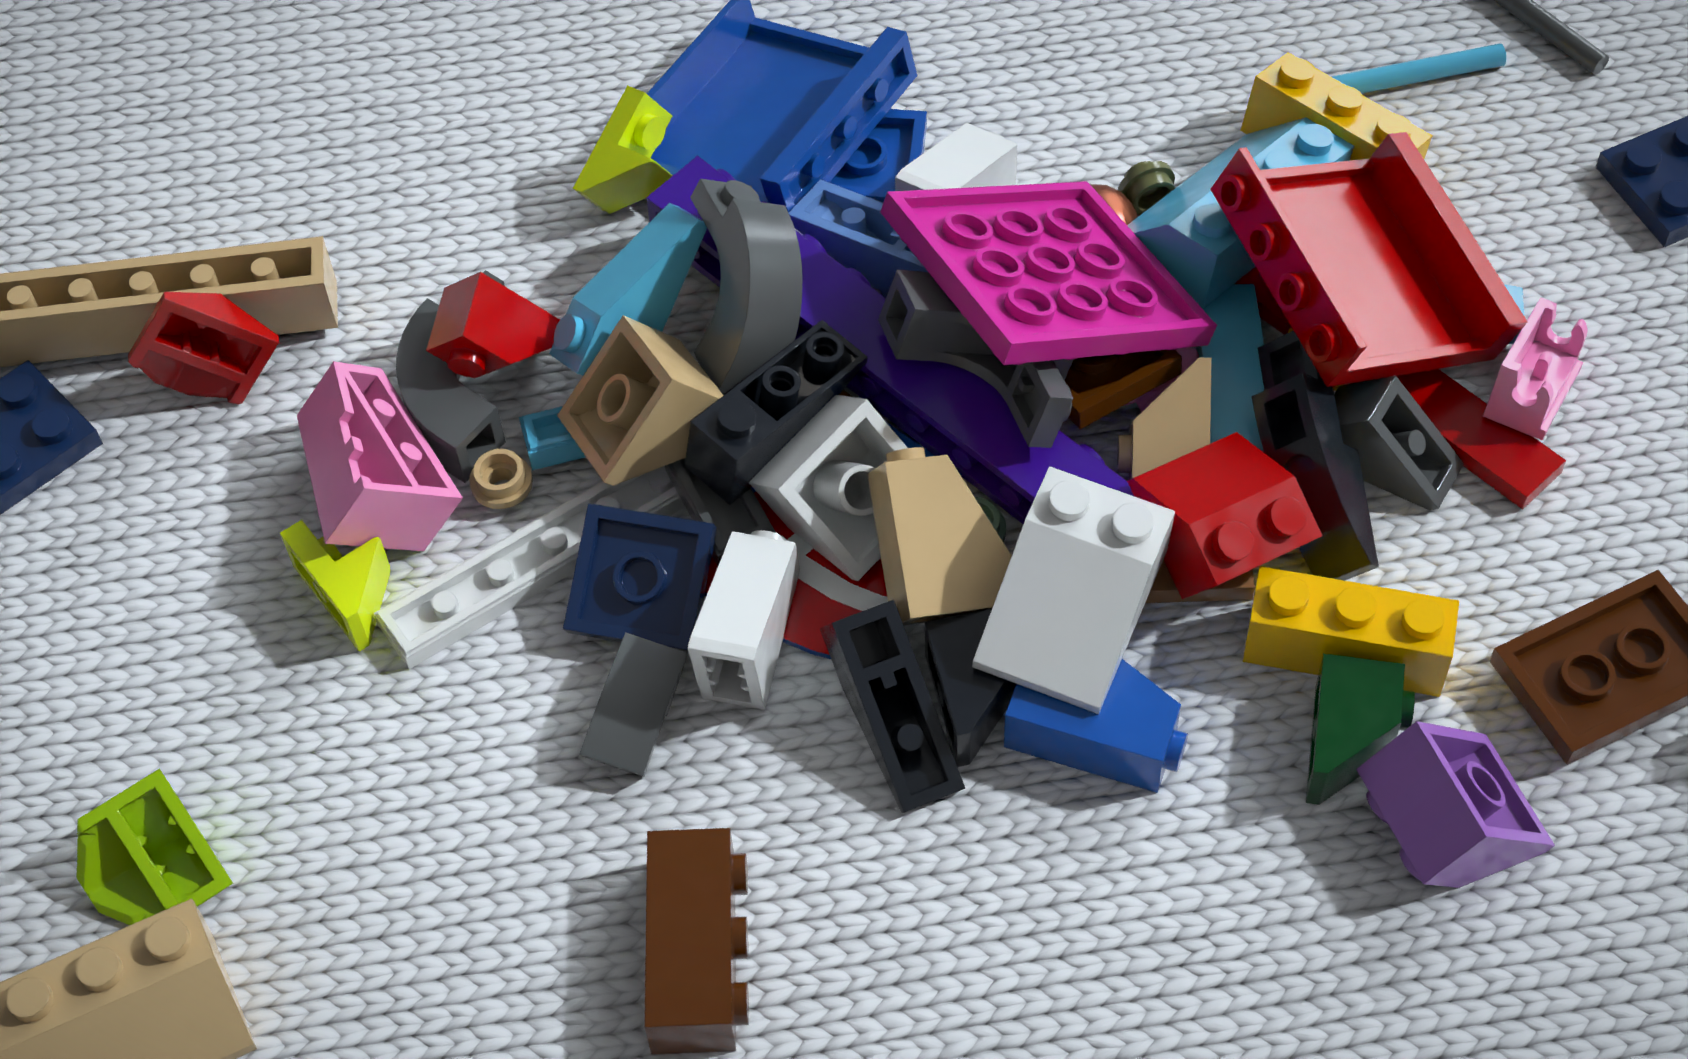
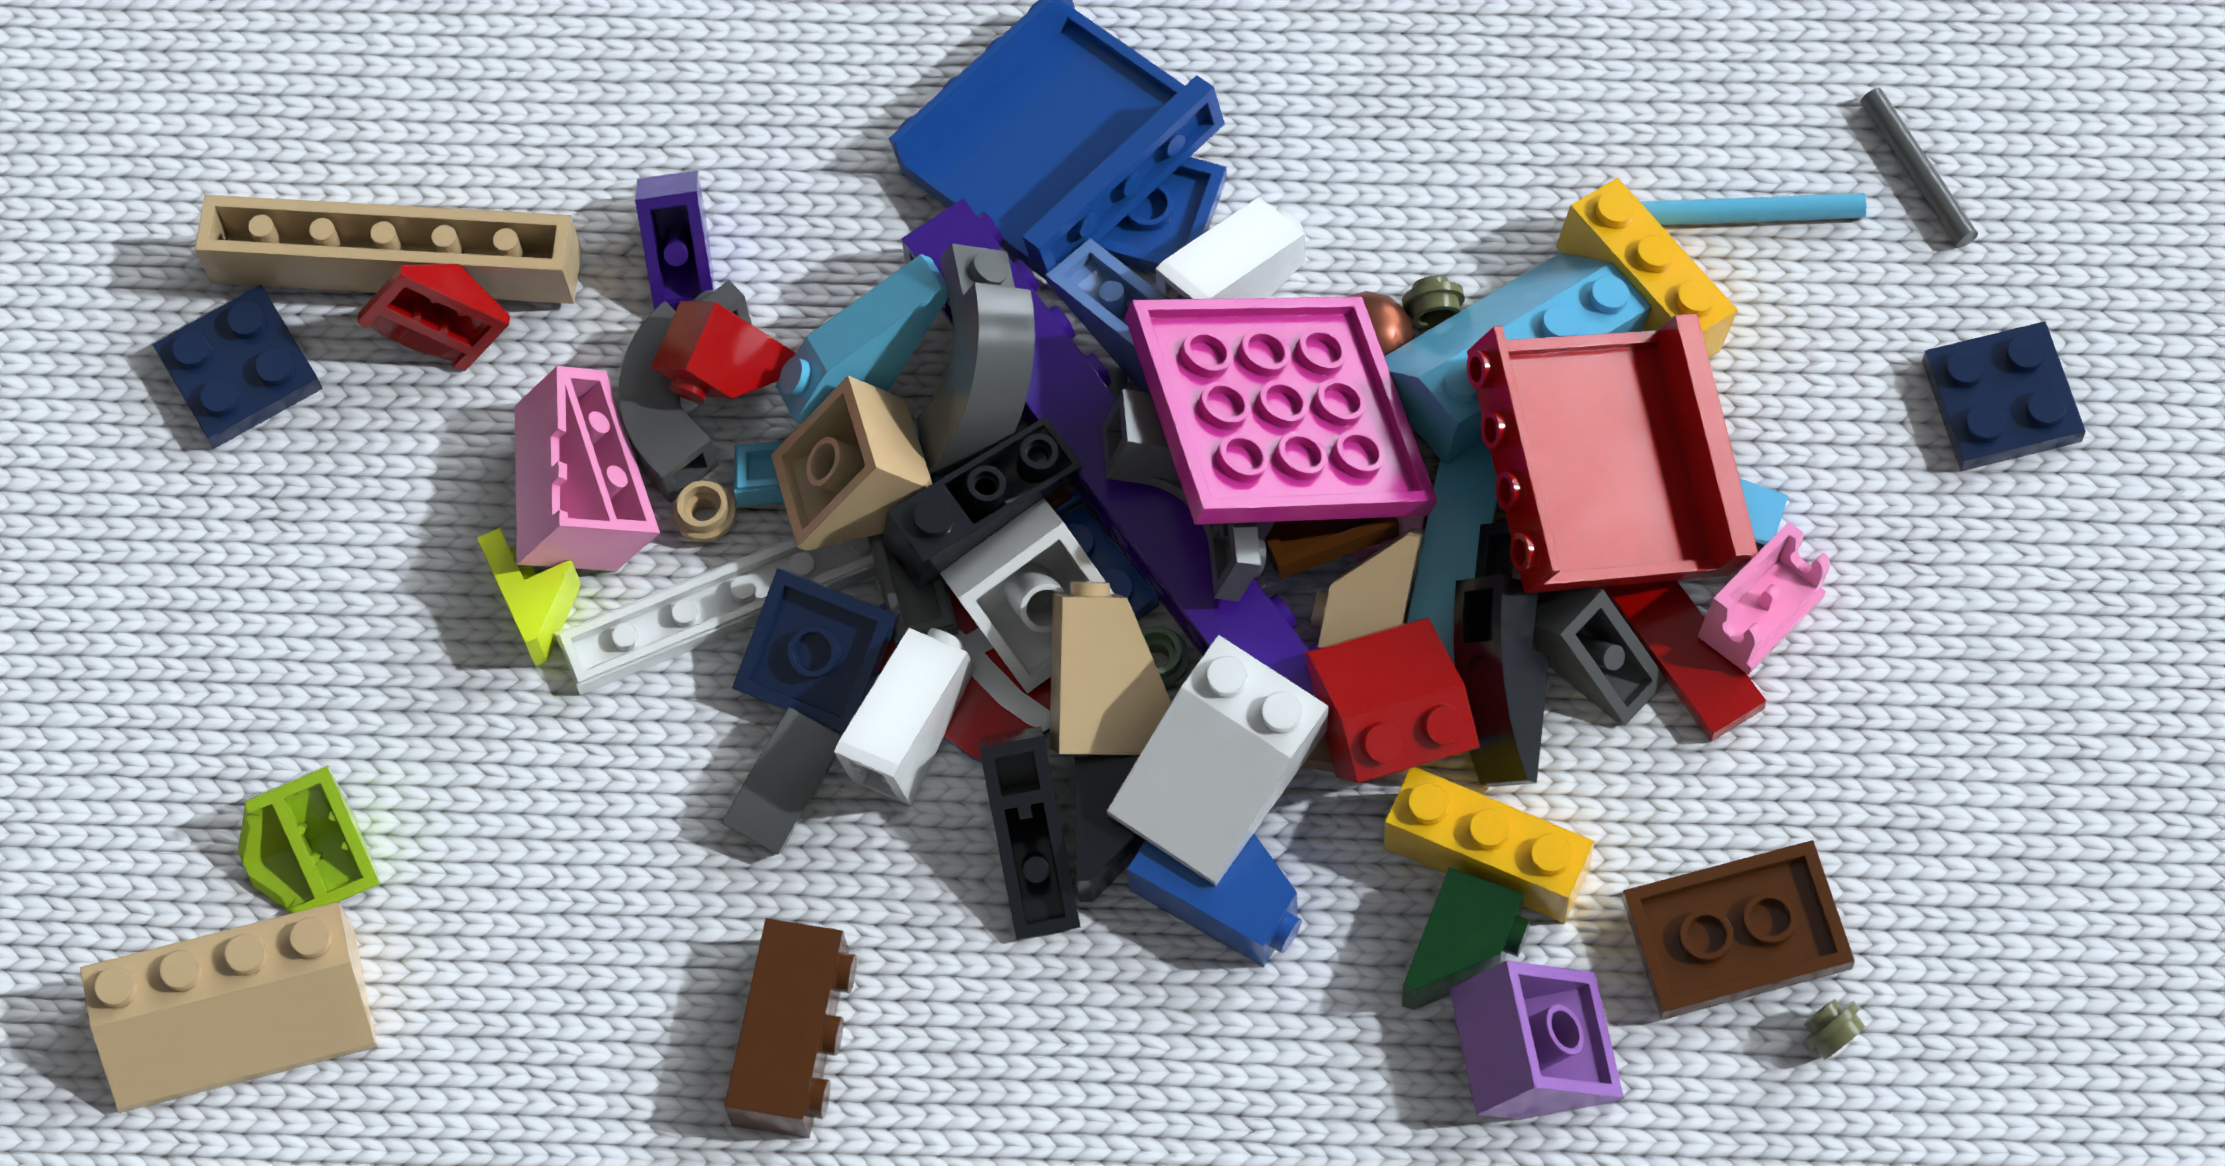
camera: 15 degrees right, 10 degrees up
(423, 247) = (674, 237): none -> dark purple slope
(621, 161) = (890, 174): neon yellow slope -> none

